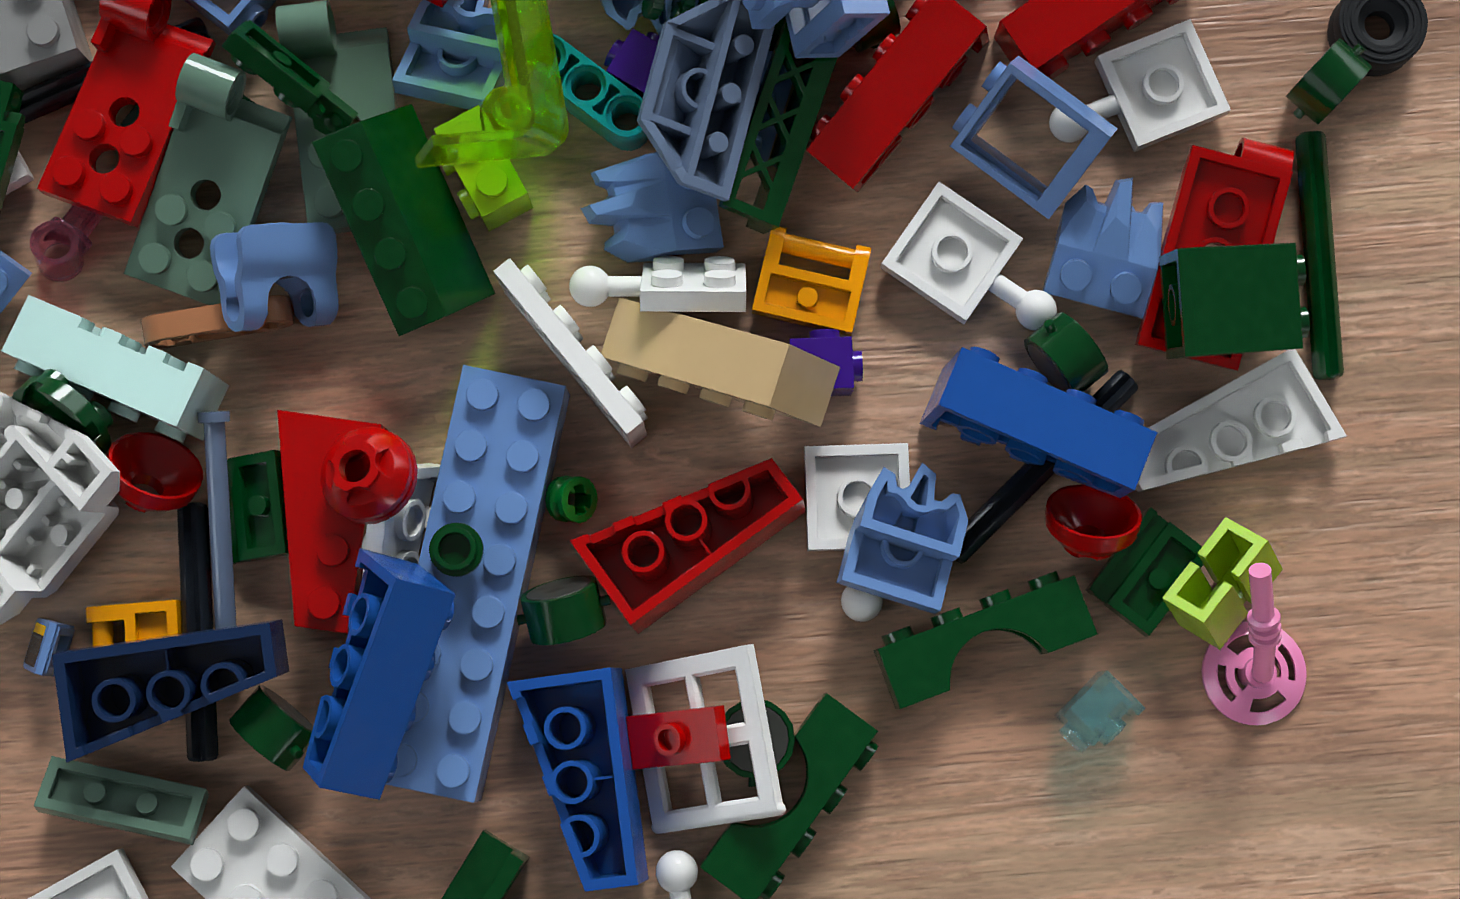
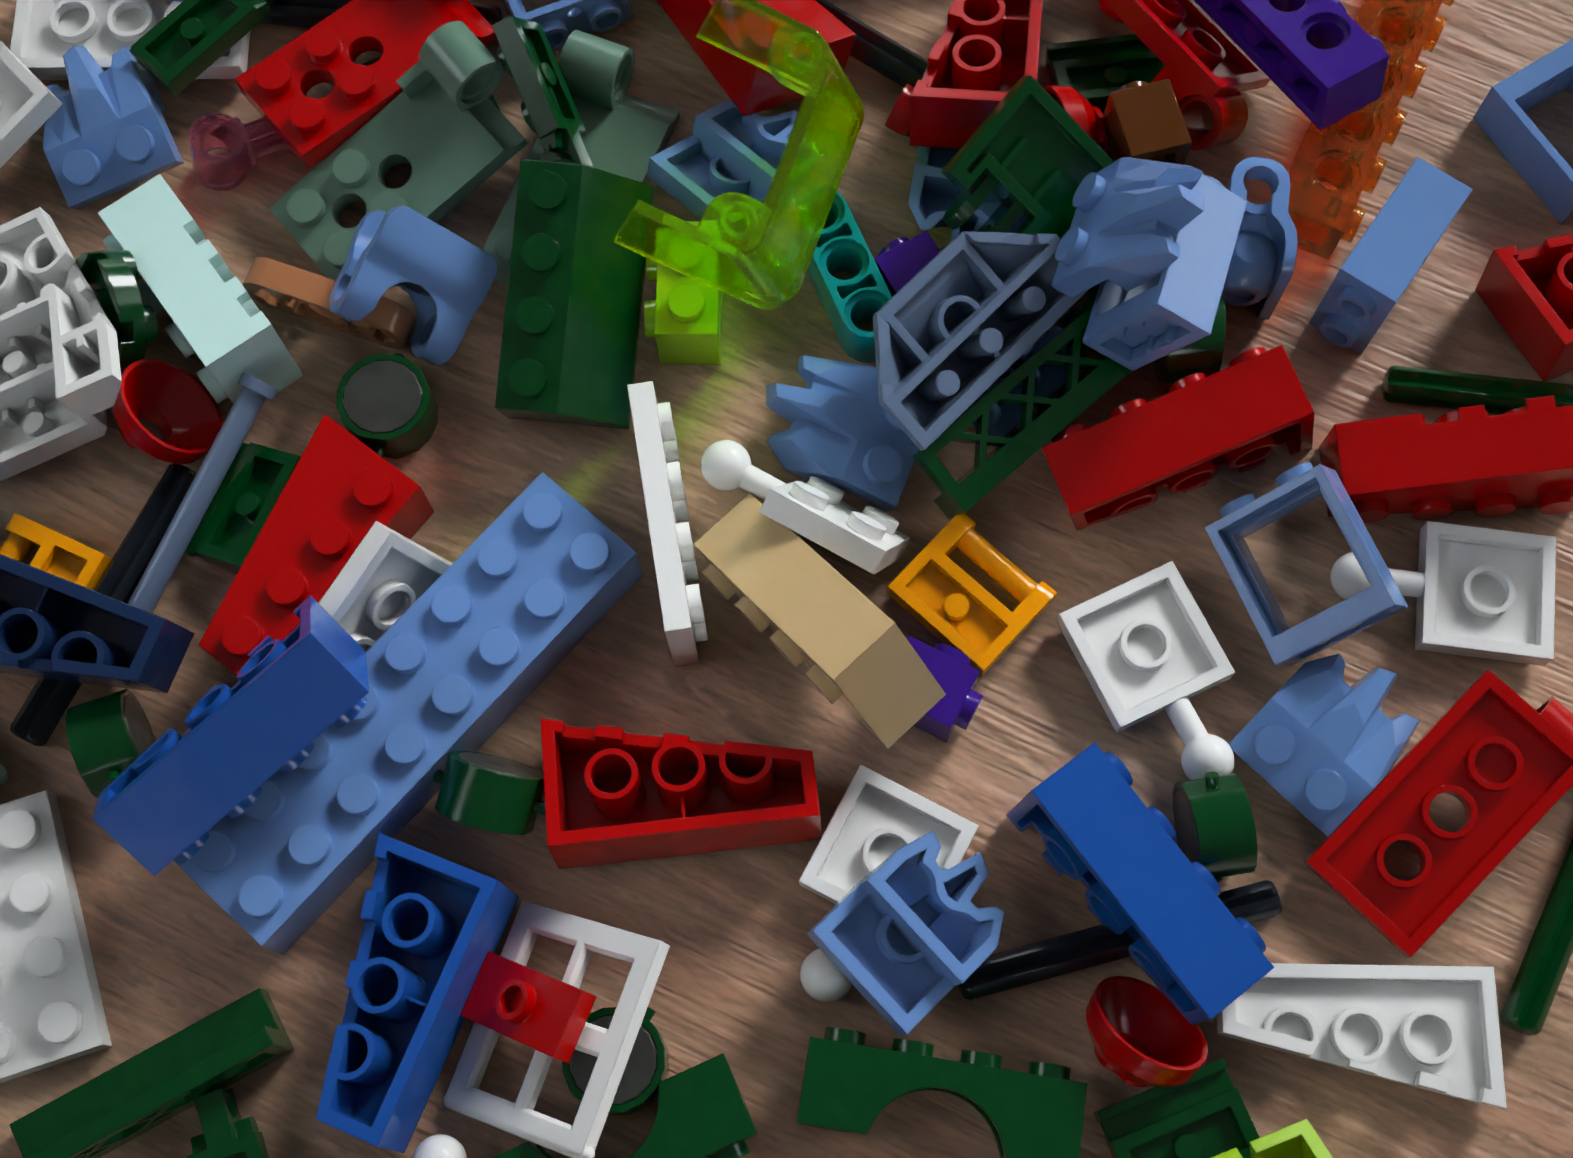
camera: 35 degrees right, 10 degrees down
(311, 374) = (387, 405): none -> piece
(386, 485) = (378, 540): red piece -> none
(456, 549) = (410, 655): dark green plate -> none
(585, 499) = (587, 667): green bush -> none
(1233, 300) = (1447, 866): dark green slope -> none

